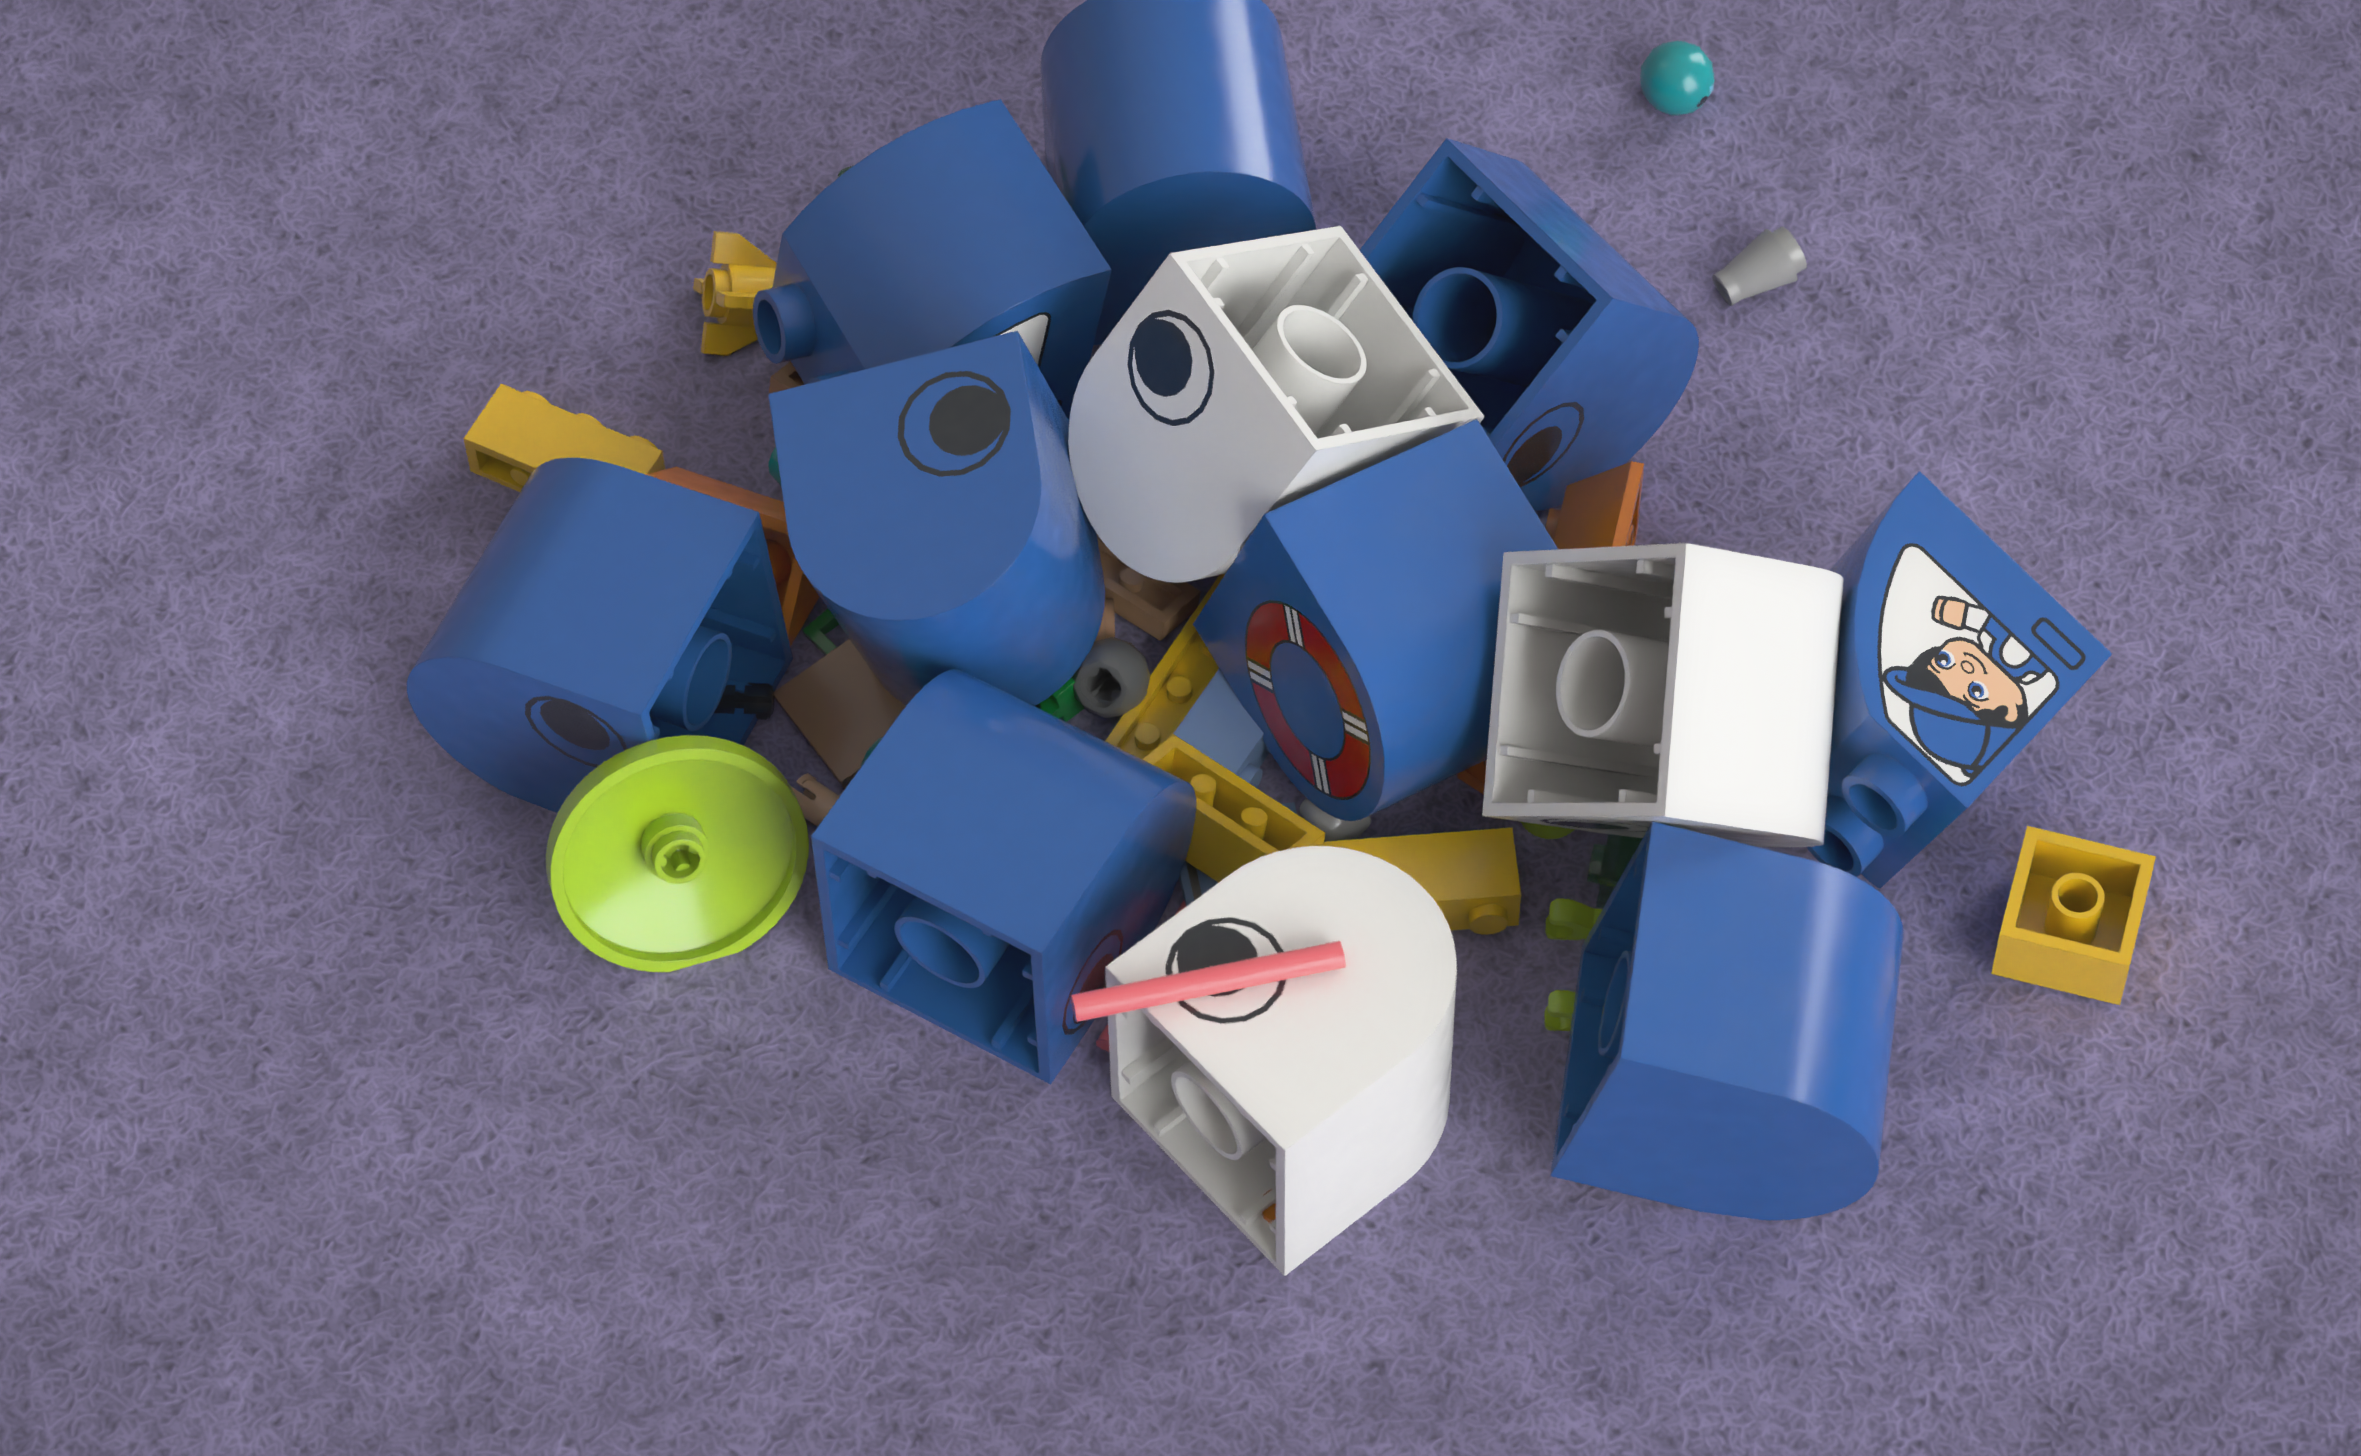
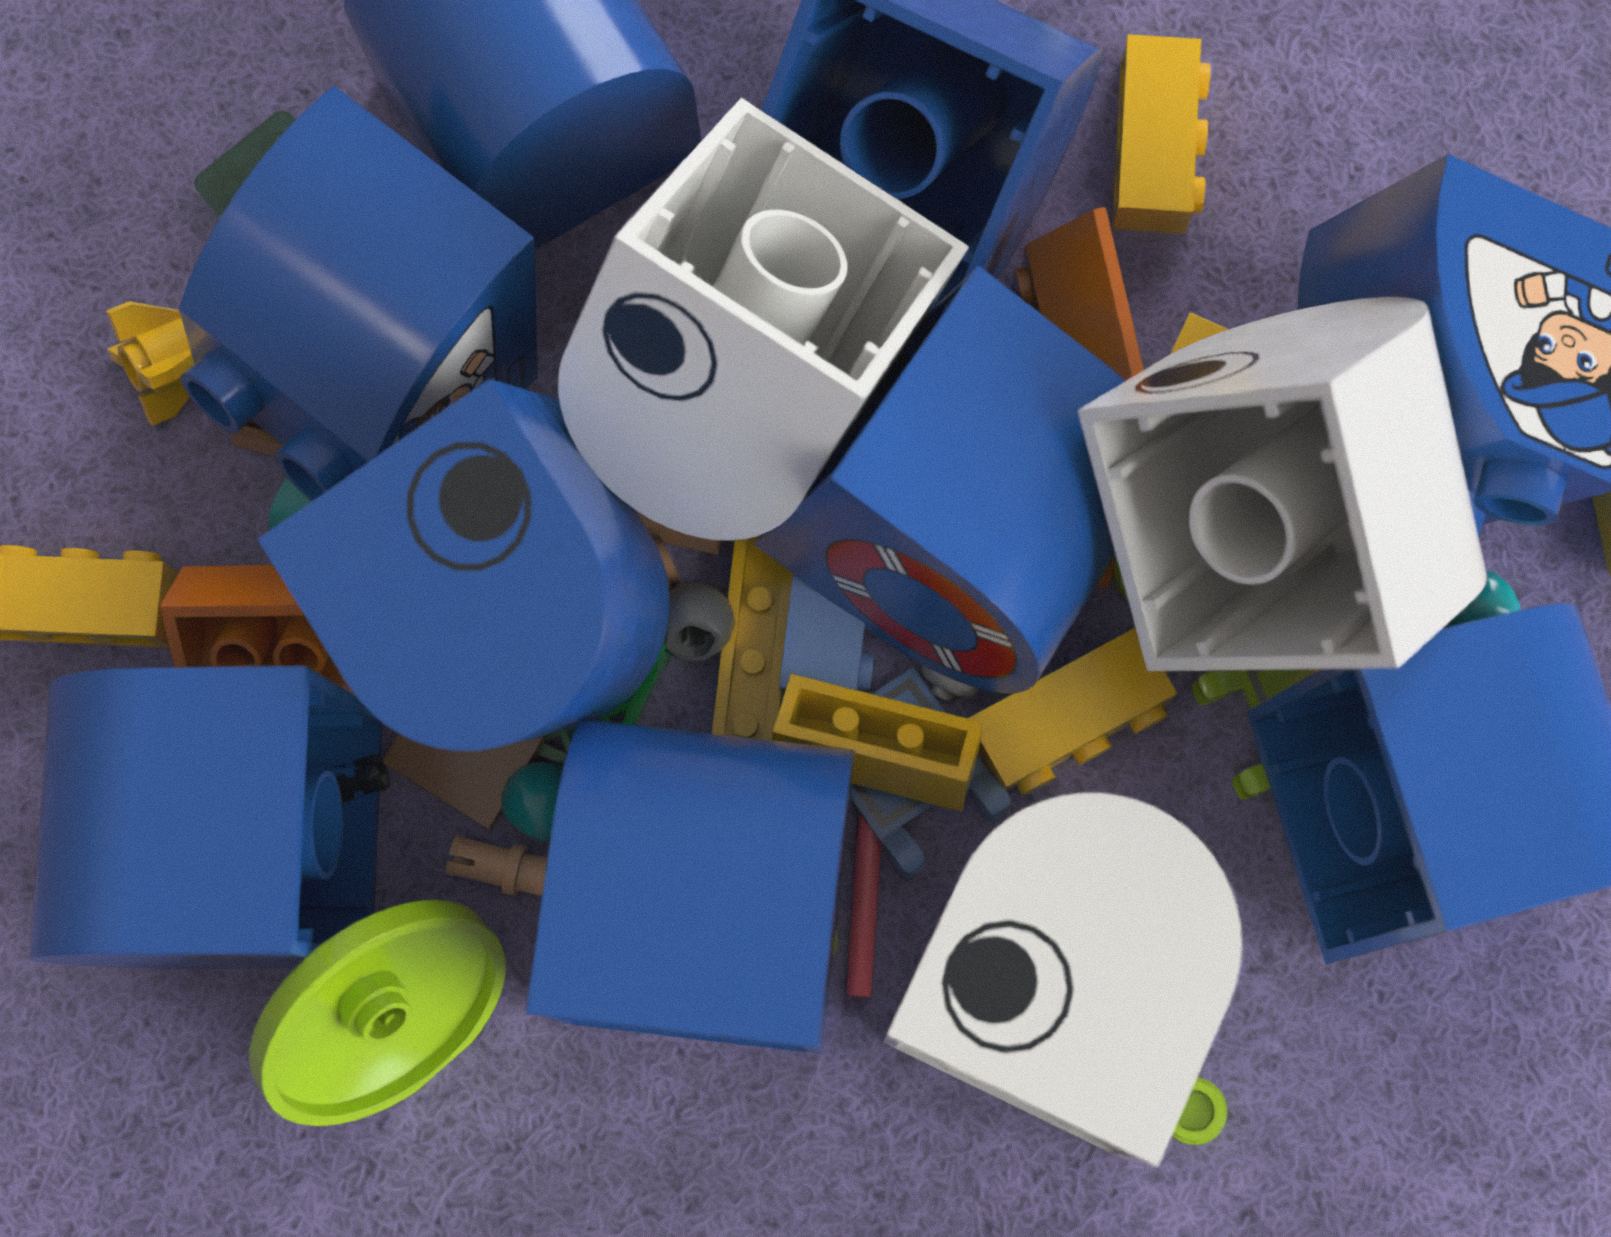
camera: 20 degrees left, 20 degrees up
(1208, 981) = (999, 1014): coral bar -> none
(1368, 1257) = (1202, 1114): none -> lime tile
(1743, 450) = (1159, 134): none -> yellow brick

